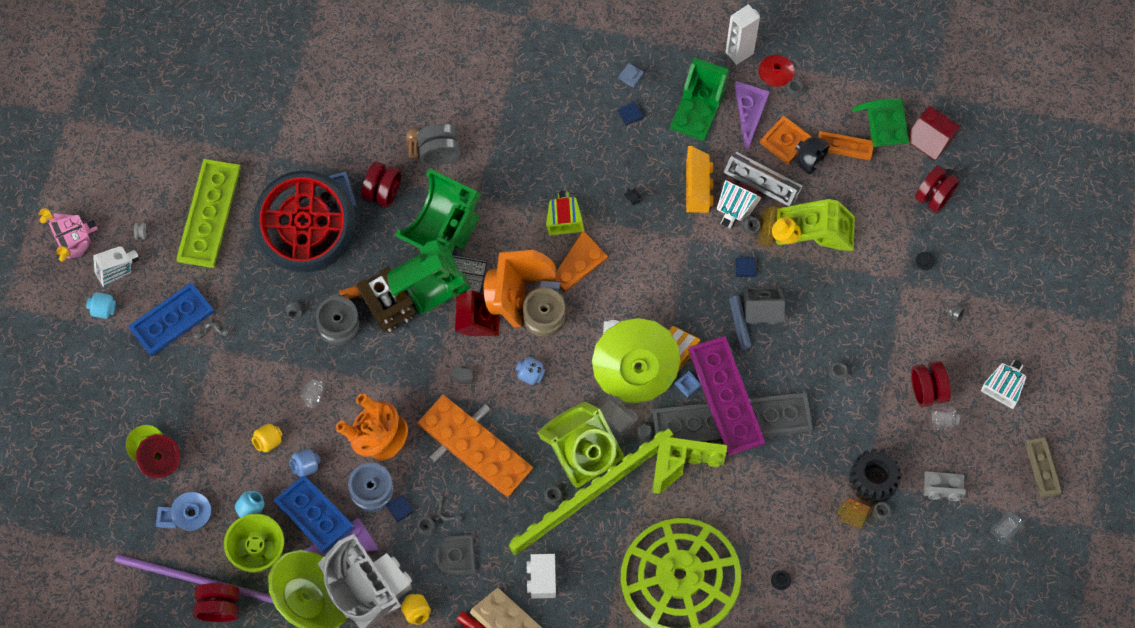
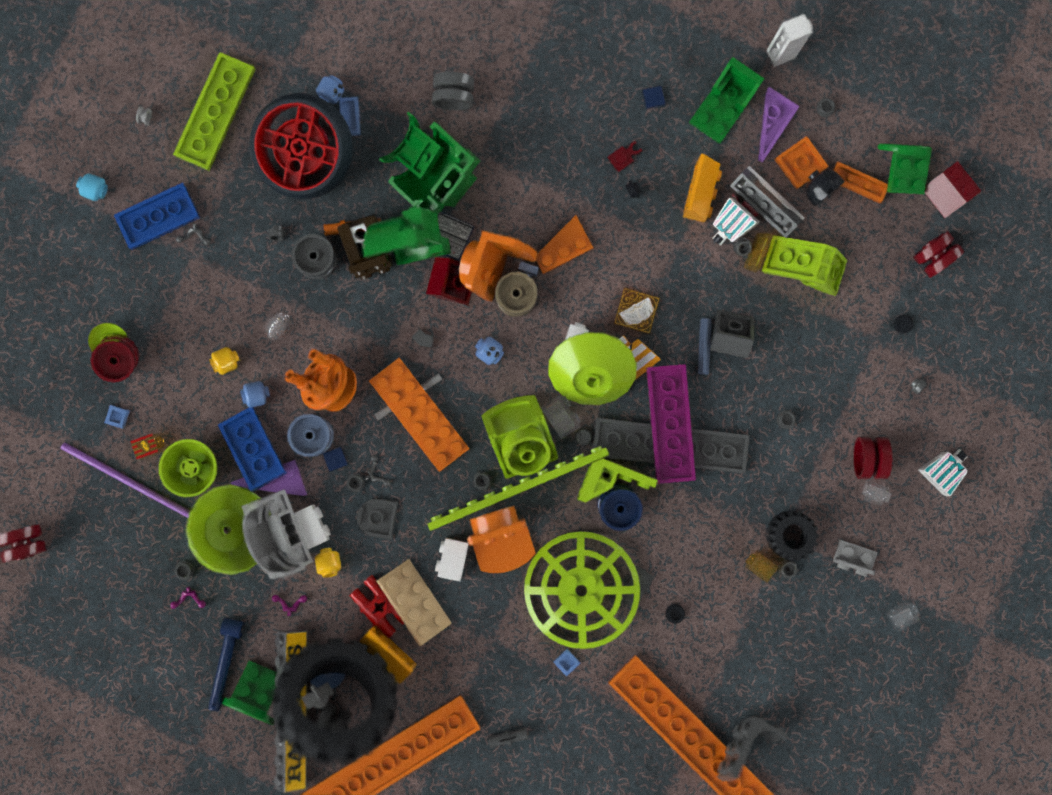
camera: 15 degrees right, 20 degrees up
(69, 233) = (74, 104): bright pink torso -> none
(113, 264) = (104, 147): white torso -> none
(186, 503) = (129, 414): medium blue dish -> none
(206, 536) = (147, 446): none -> clear yellow brick
(216, 602) = (142, 517): dark red wheel -> none
(249, 503) = (193, 426): medium azure head -> none
(319, 164) = (330, 89): none -> medium blue head
(381, 184) = (386, 121): dark red wheel -> none
(412, 143) = (428, 81): medium nougat axle -> none
(416, 203) = (417, 150): none -> green piece
(564, 215) = (560, 194): lime torso -> none
(586, 543) = (501, 541): none -> orange piece
(615, 172) = (622, 158): none -> dark red plate
(631, 75) = (664, 55): sand blue plate -> none
(665, 304) = (636, 310): none -> tile
(688, 384) = (637, 398): medium blue tile -> none
(706, 478) = (619, 507): none -> dark blue wheel
(745, 267) = (725, 289): dark blue tile -> none
(774, 76) = (809, 90): red dish -> none
(786, 231) = (775, 265): yellow piece -> none
(1043, 467) = (955, 562): dark tan plate -> none

